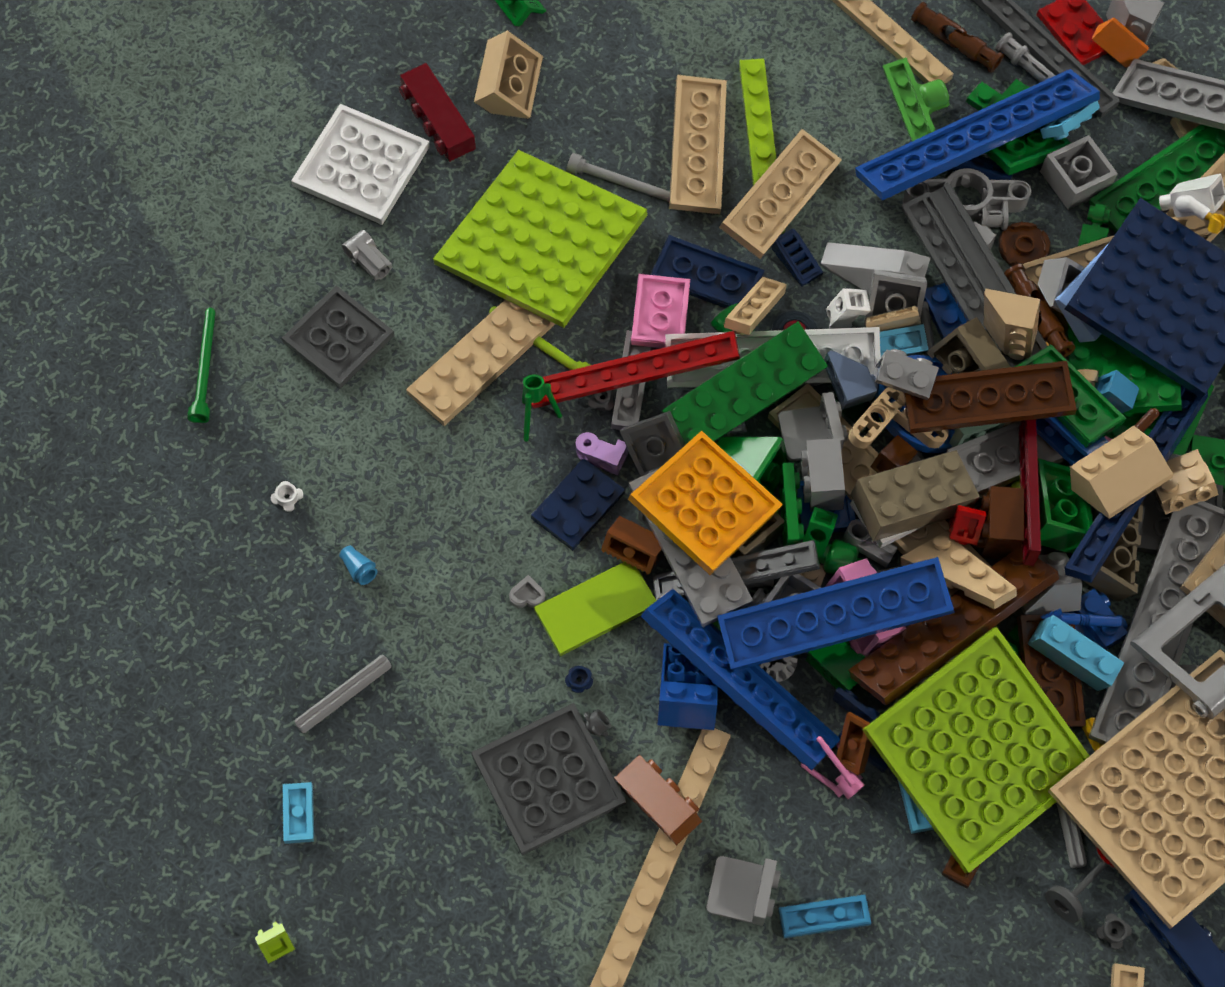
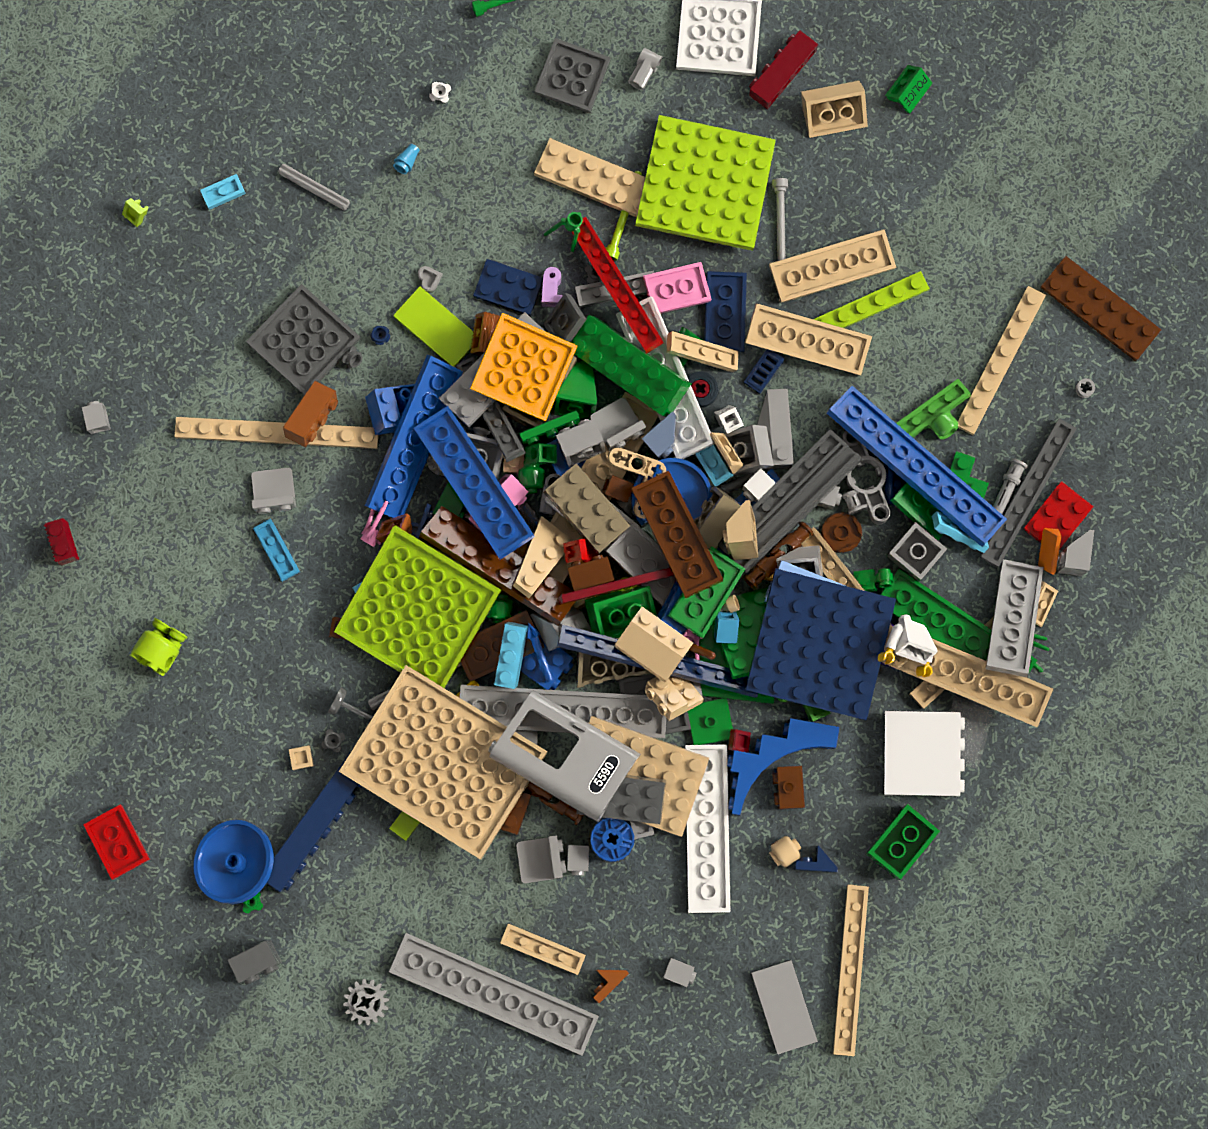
camera: 70 degrees right, 15 degrees up
(906, 374) = (672, 470): light grey bracket -> none
(944, 304) = (758, 486): none -> white brick
(968, 45) = (1005, 440): reddish brown piece -> none

